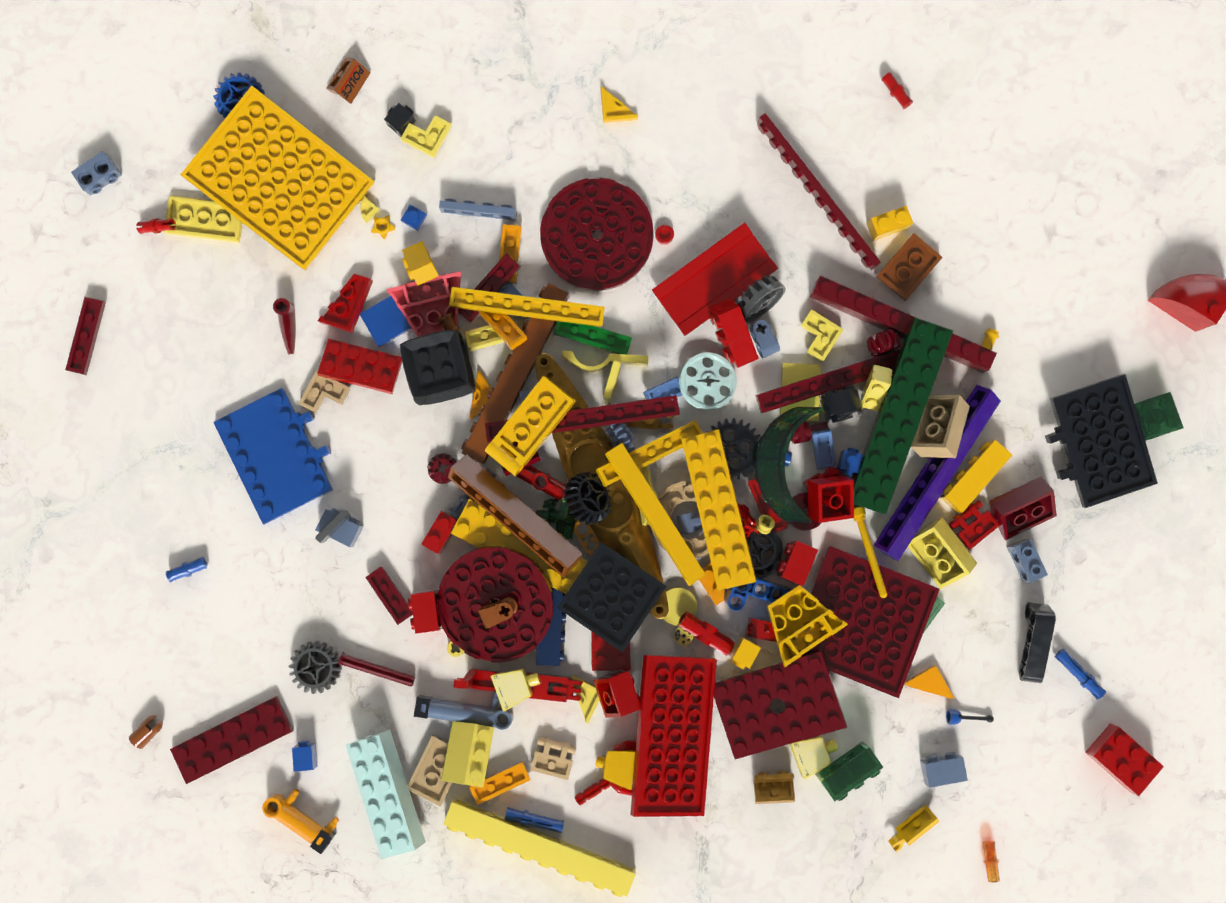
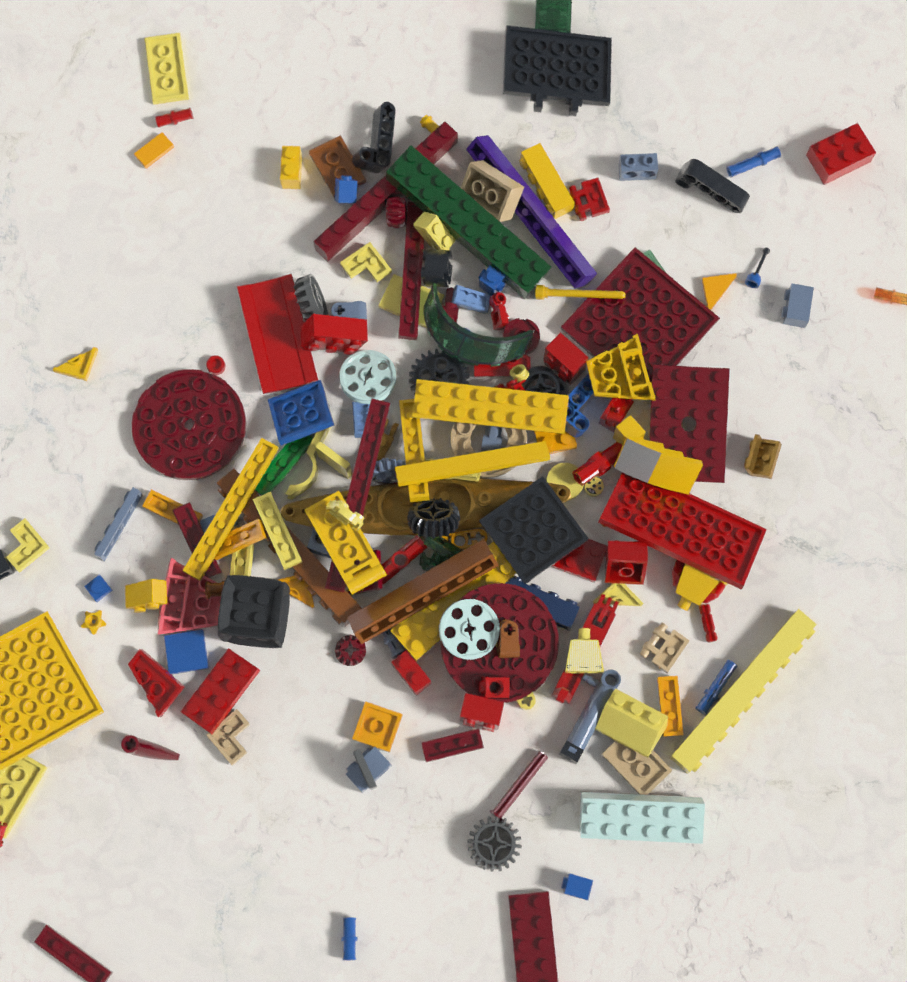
camera: 70 degrees left, 10 degrees down
(274, 455) = (271, 809): blue hinge -> none
(299, 822) = (641, 915): light orange piece -> none
(368, 209) = (71, 629): light yellow tile -> none
(381, 520) = (377, 726): none -> light orange plate
(450, 624) = (503, 687): none -> red brick
(491, 581) = (477, 634): none -> light aqua wedge
(522, 357) = (277, 530): none -> light yellow plate
(547, 421) = (340, 511): none -> light yellow plate
(645, 333) = (300, 412): none -> blue plate
(722, 691) = (658, 465): none -> yellow slope
(812, 754) = (744, 412): light yellow torso -> none
(813, 186) = (237, 216): dark red plate -> none
(830, 499) = (518, 306): red brick -> none
(849, 771) = (770, 384): clear green brick -> none
(856, 86) = (154, 150): none -> light orange tile
(886, 285) = (345, 189): none -> blue brick
(913, 828) = (840, 350): yellow plate -> none
(942, 553) = (604, 235): light yellow slope -> none
(945, 61) = (166, 68): none -> light yellow tile
(956, 296) = (383, 117): none -> black beam
(1024, 507) = (590, 152): dark red slope -> none

